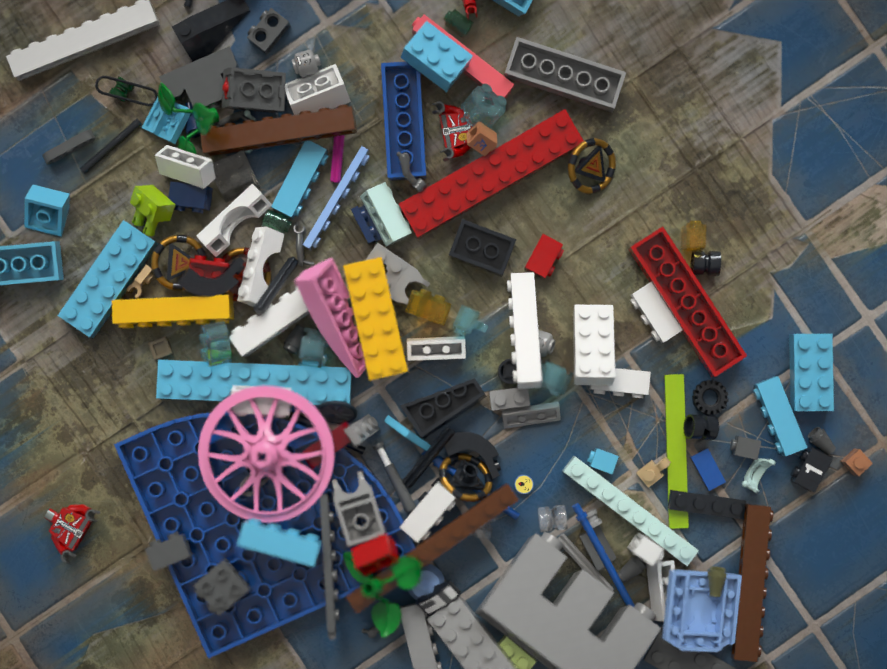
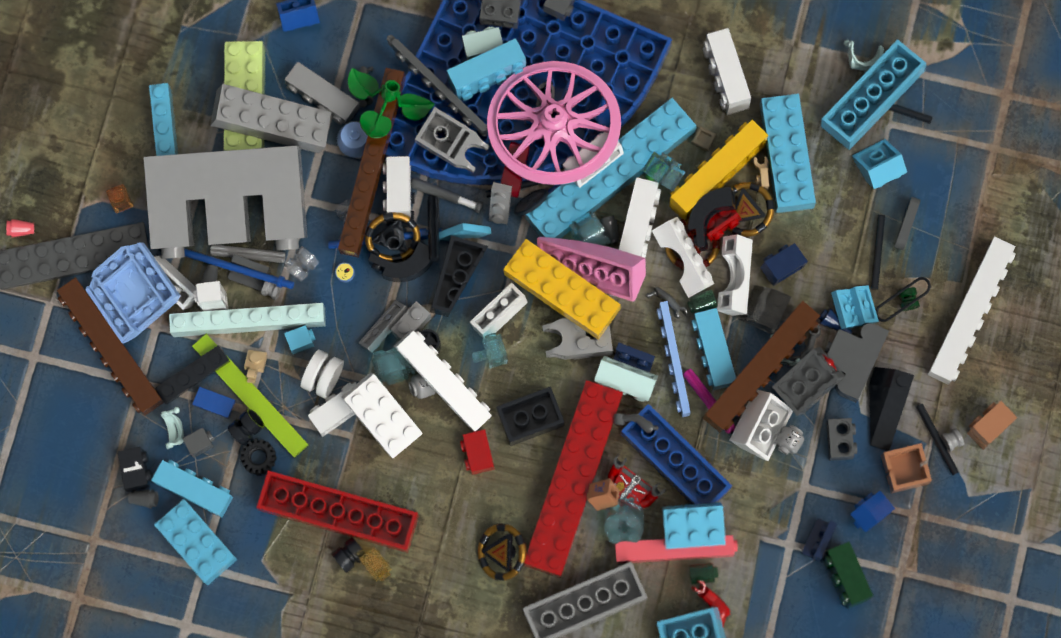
camera: 145 degrees right, 10 degrees down
(95, 382) = (727, 71): none -> white brick
(150, 204) = (804, 231): lime brick -> none
(185, 166) = (806, 280): white brick -> none
(204, 117) = (828, 325): green plant -> none
(264, 567) = (481, 42): none -> light aqua brick
(276, 285) = (659, 252): black axle -> none
(375, 554) = (409, 117): red brick -> none
(428, 307) = (531, 336): clear yellow brick -> none
(440, 597) = (334, 135): slope -> none
(610, 416) = (322, 374): none -> white wheel
(655, 313) = (355, 482): white brick -> none
(716, 580) = (139, 322): olive cone -> none
(856, 462) = (103, 504): nougat brick -> none

